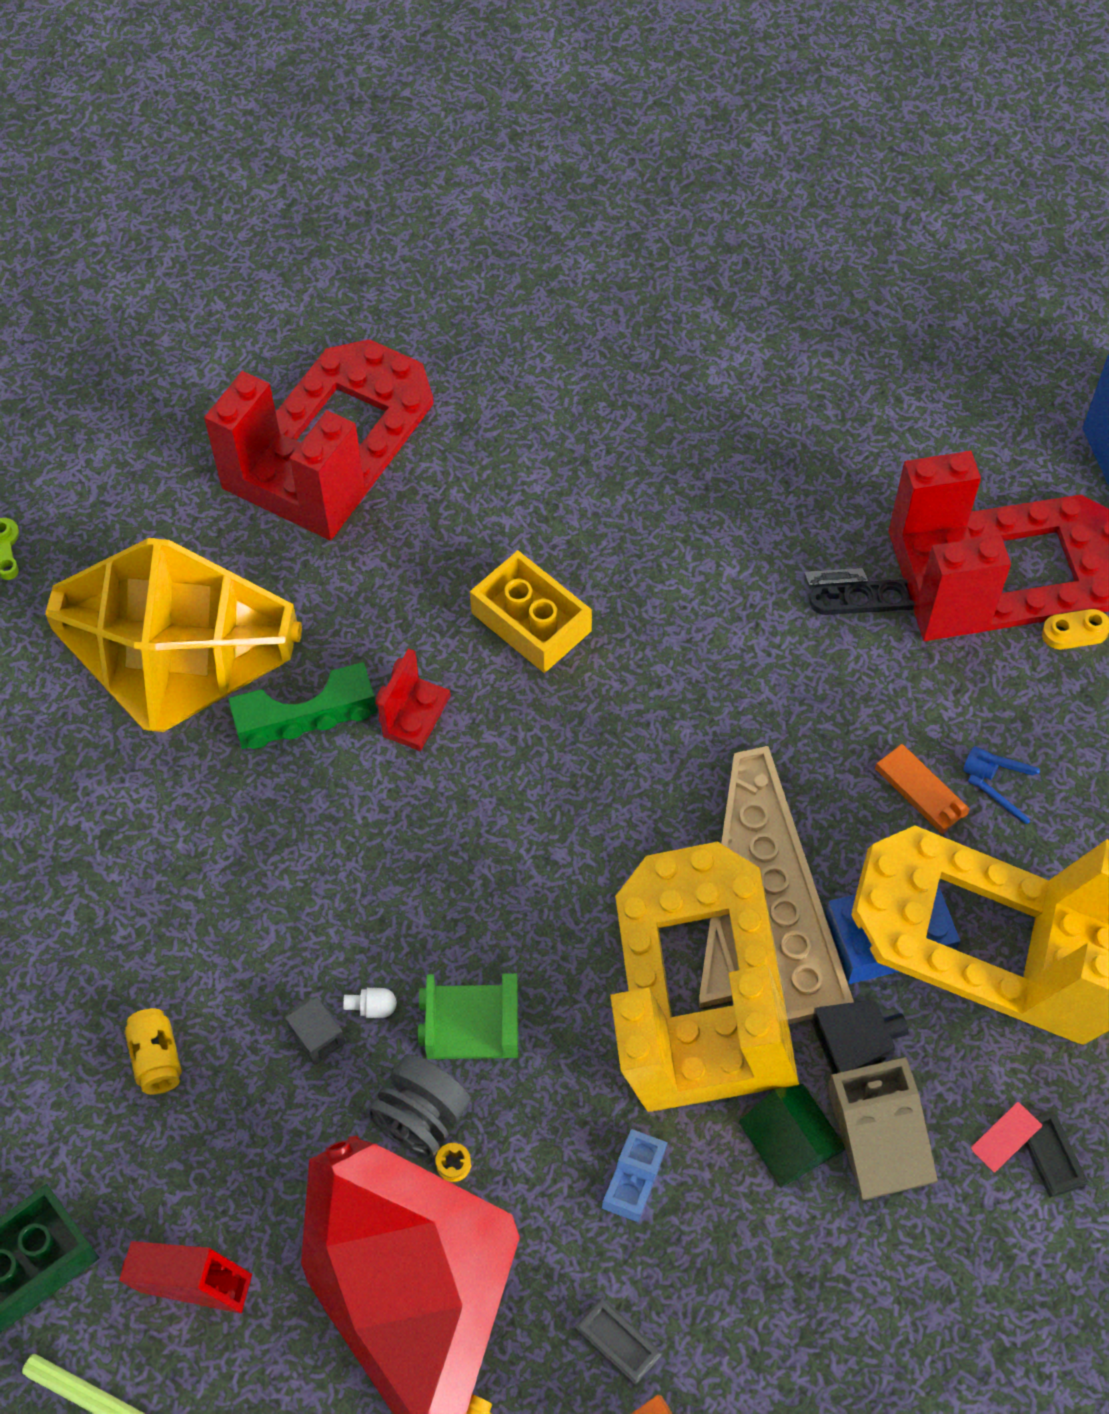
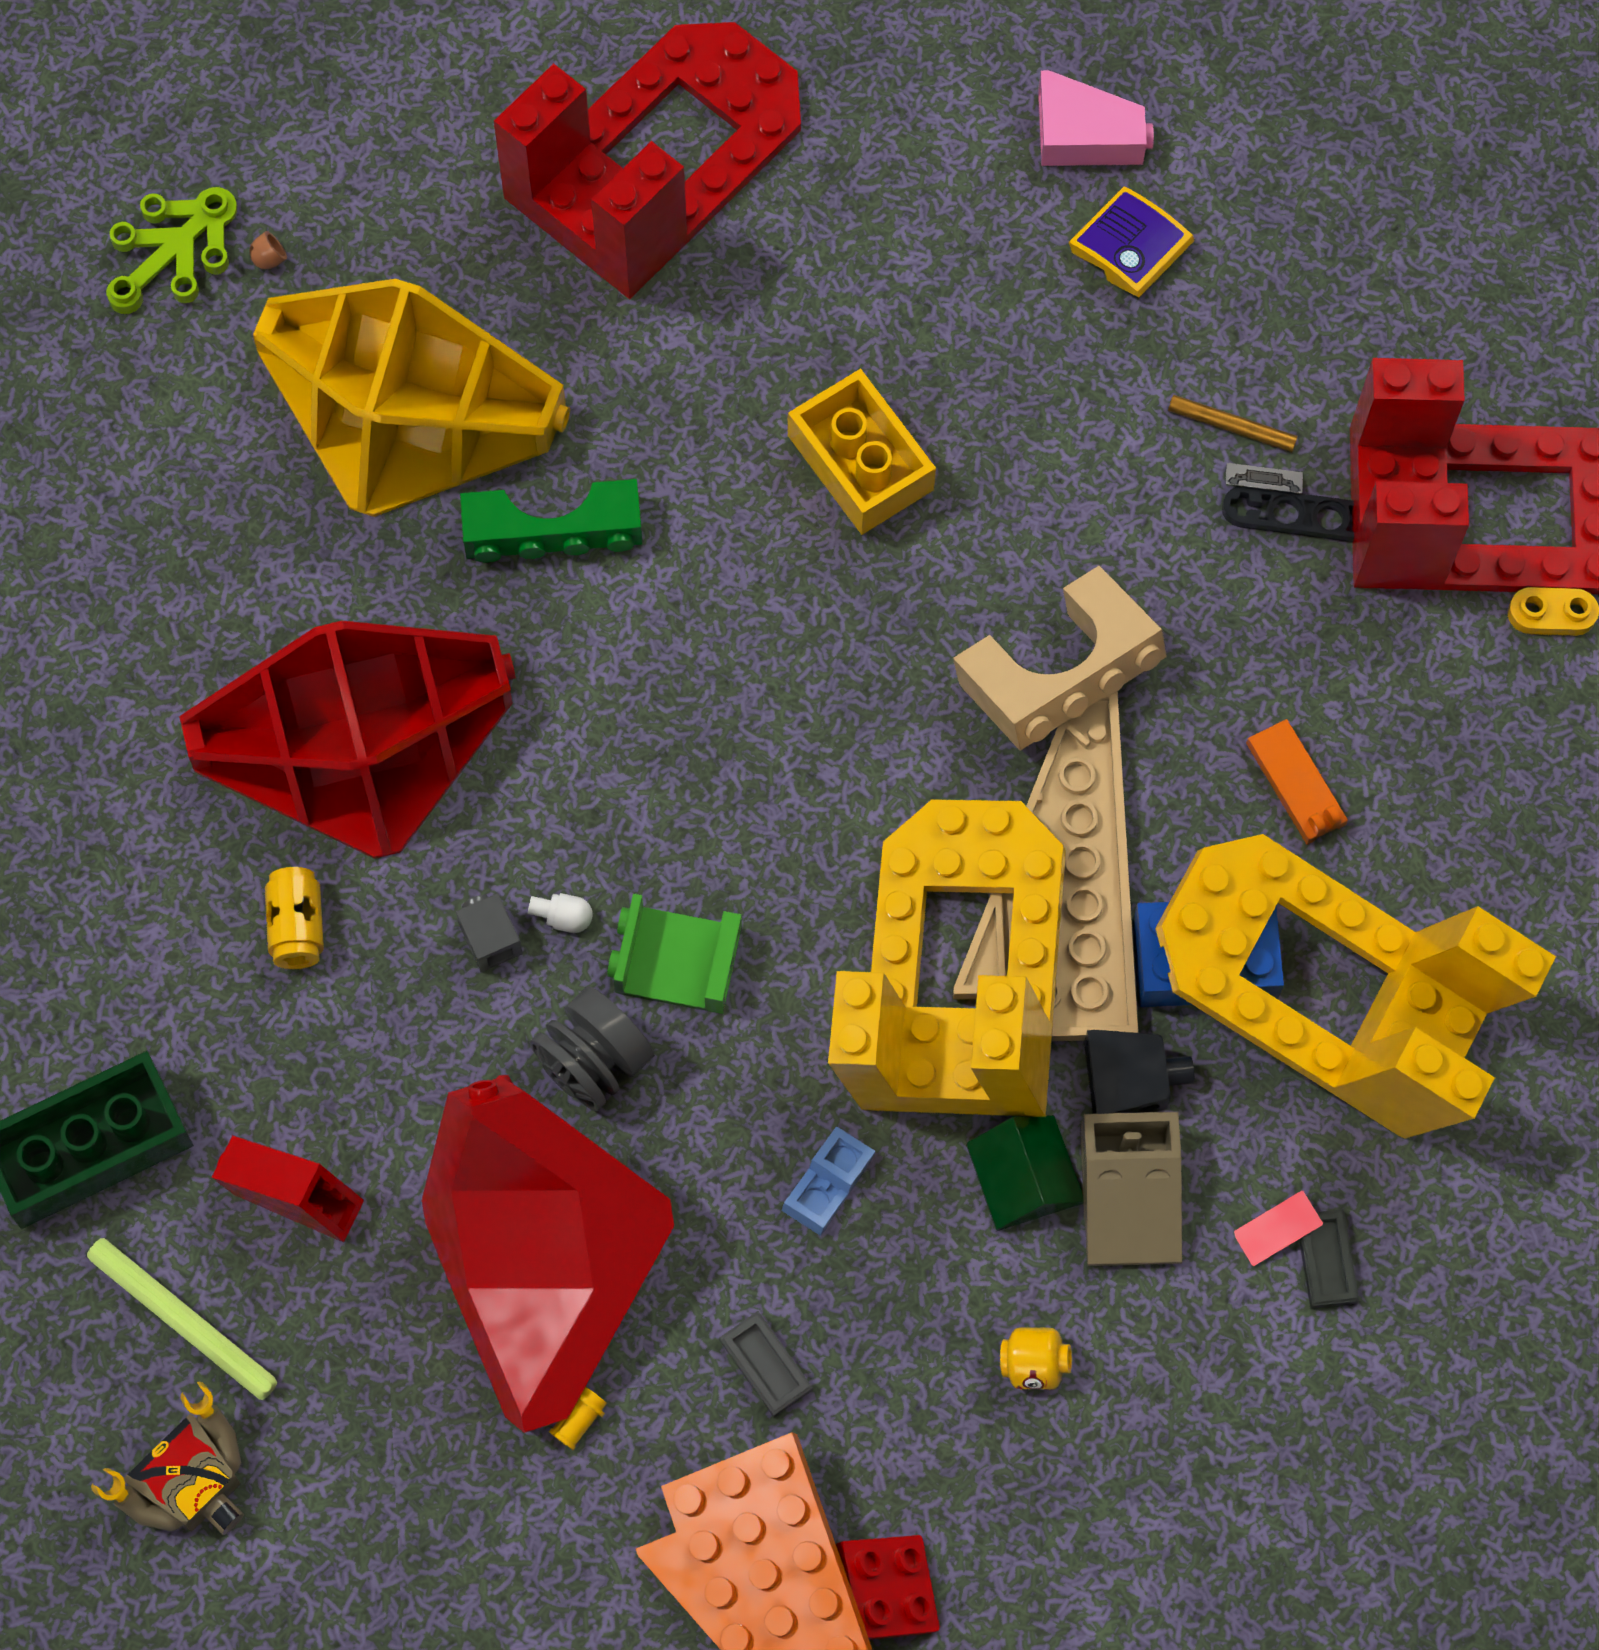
camera: 10 degrees right, 10 degrees up
(46, 556) = (267, 251): none -> nougat hinge
(174, 888) = (354, 727): none -> red panel
(409, 704) = (684, 545): red bracket -> none
(451, 1173) = (625, 1108): yellow bush -> none
(644, 360) = (1089, 125): none -> bright pink slope
(694, 433) = (1131, 241): none -> slope
(707, 768) = (1034, 704): none -> tan arch
(802, 543) = (1232, 423): none -> pearl gold bar
(841, 1287) = (1035, 1358): none -> yellow head
(983, 765) = (1382, 767): blue plant -> none

